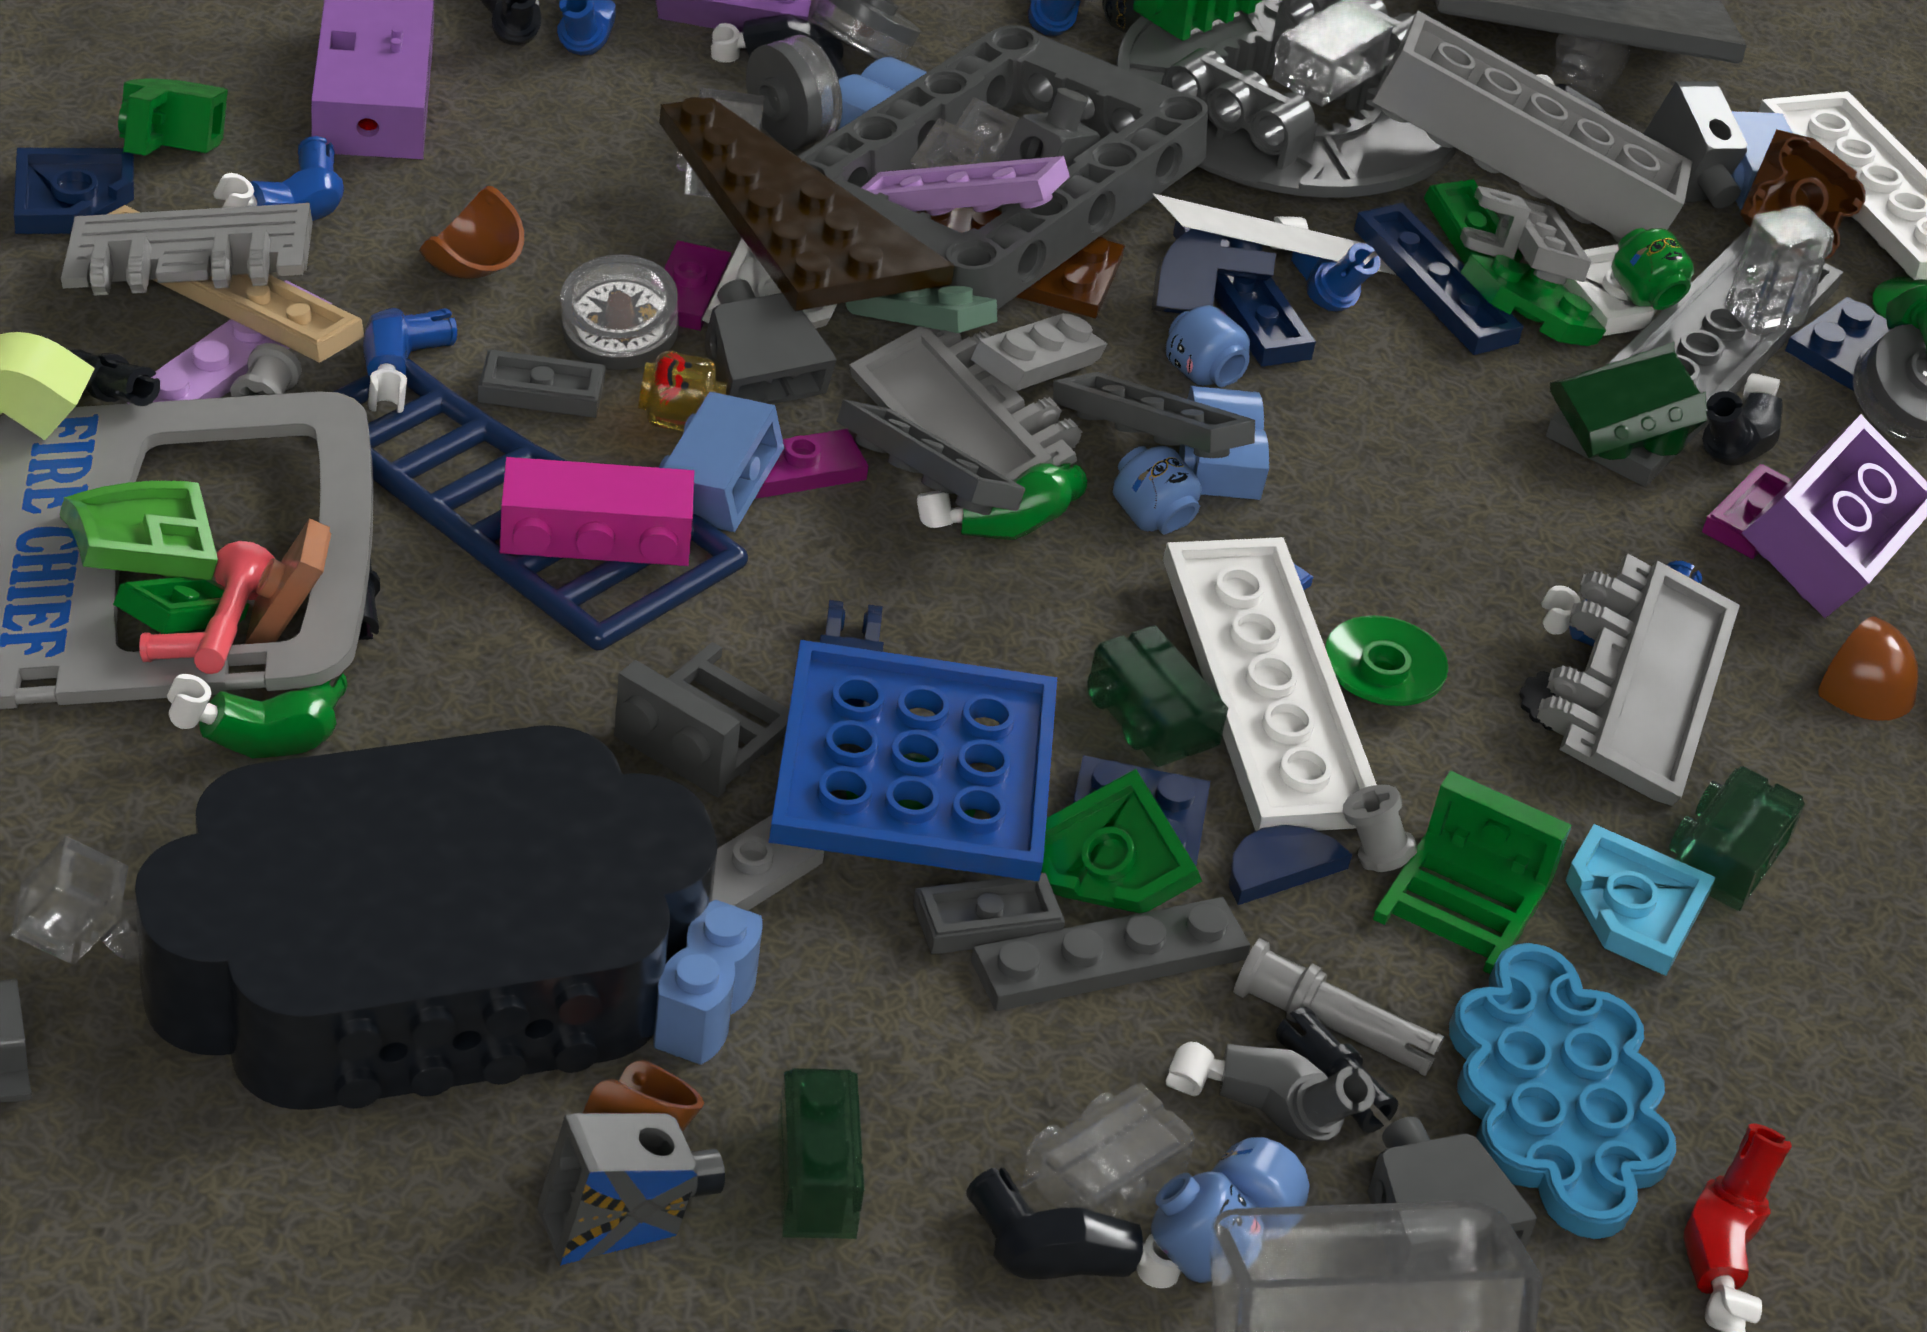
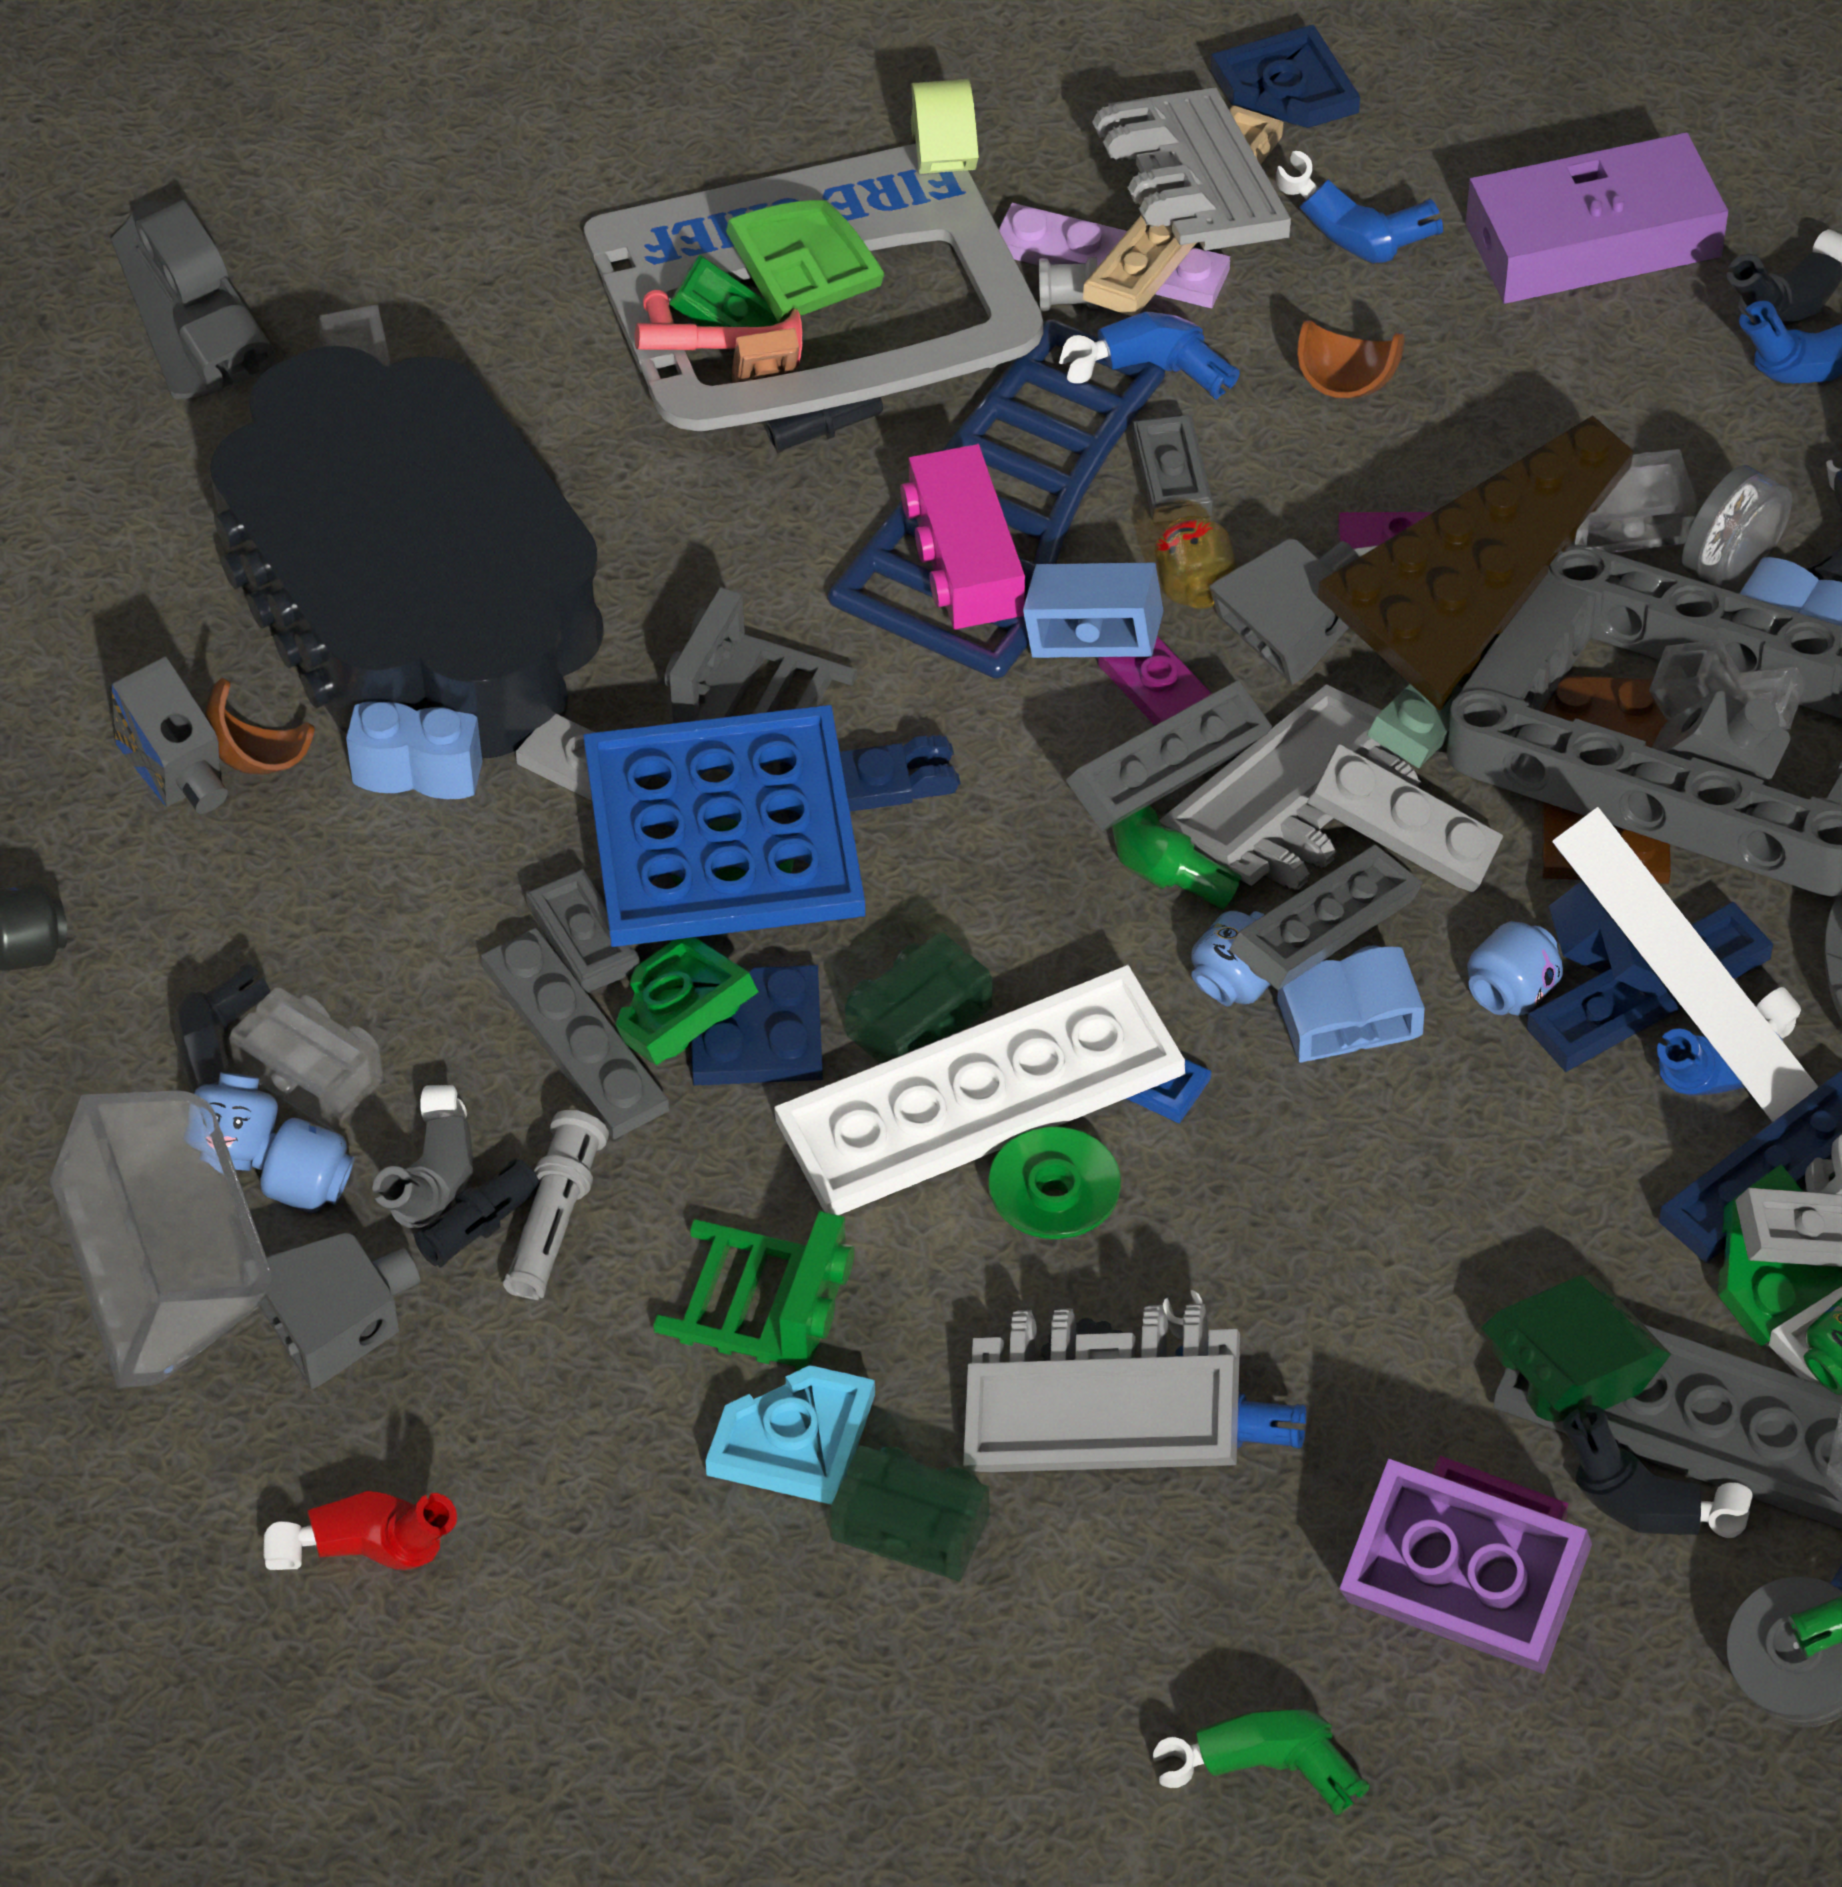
camera: 85 degrees right, 10 degrees up
(118, 380) = (1006, 180): black pin -> none
(171, 115) = (1420, 96): green brick -> none
(255, 728) = (613, 407): green arm -> none
(619, 311) = (1296, 488): clear piece -> none
(820, 1154) = (248, 861): clear green brick -> none
(973, 185) = (1599, 682): lavender plate -> none
(1283, 859) = (743, 1140): dark blue tile -> none
(1380, 828) = (791, 1199): light grey bush -> none
(1562, 1089) = (511, 1387): dark azure plate -> none
(1873, 673) = (1249, 1638): dark orange helmet -> none

